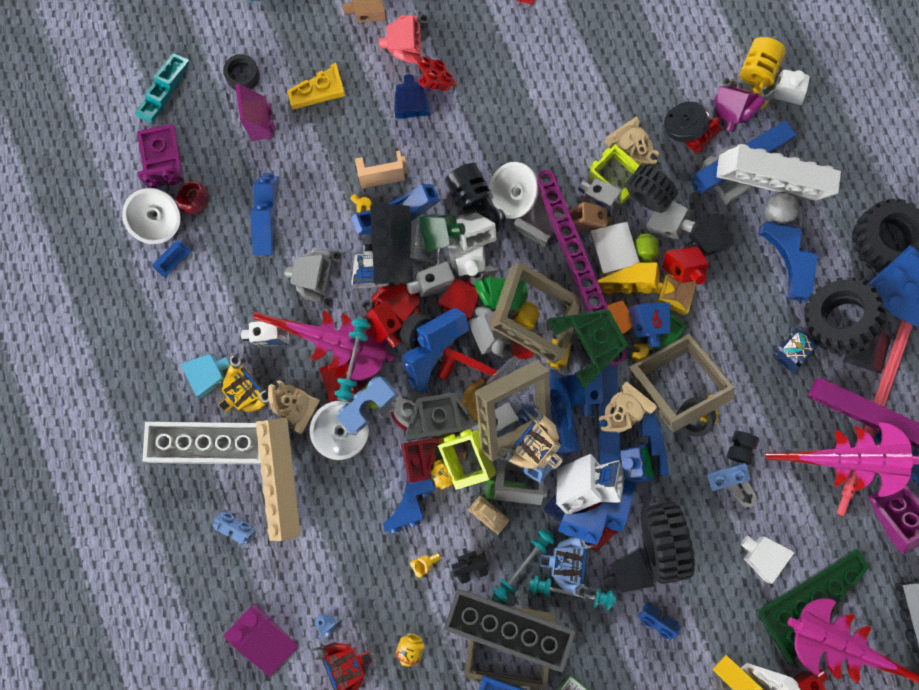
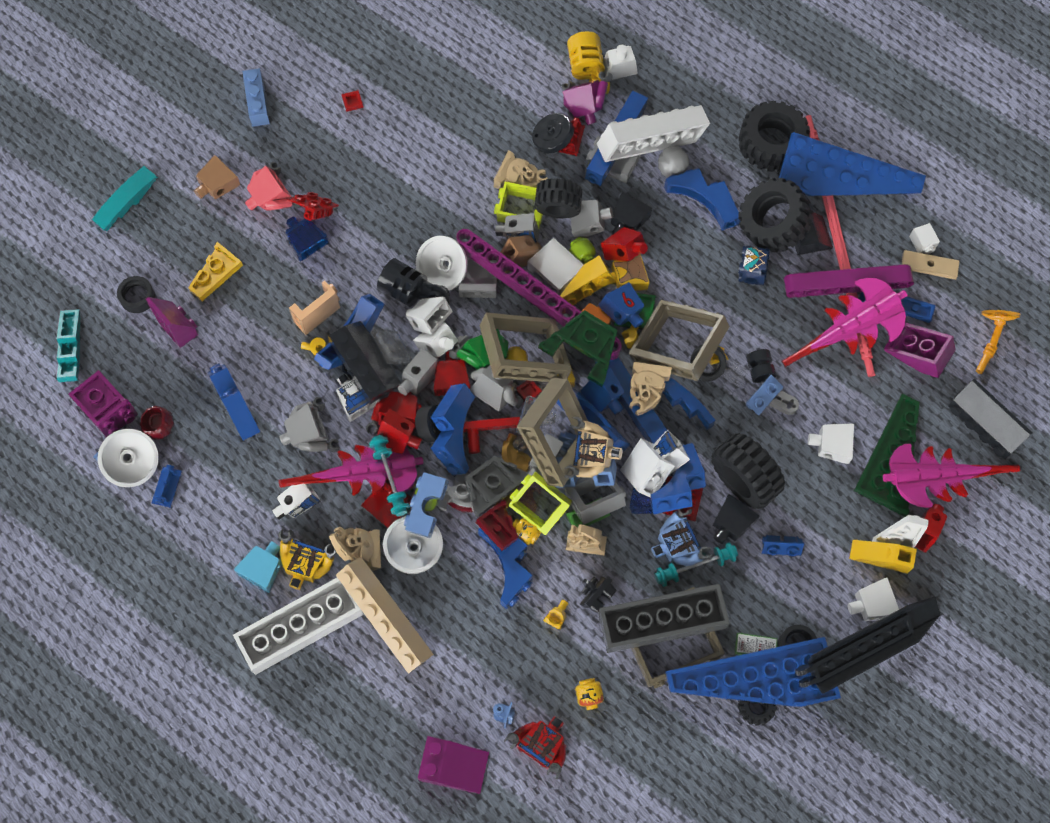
camera: 35 degrees left, 10 degrees down
(241, 530) = (375, 683): medium blue hinge -> none
(440, 231) = (401, 328): dark green torso -> none
(505, 588) = (646, 532): teal axle -> none
(637, 463) = (684, 426): blue torso -> none

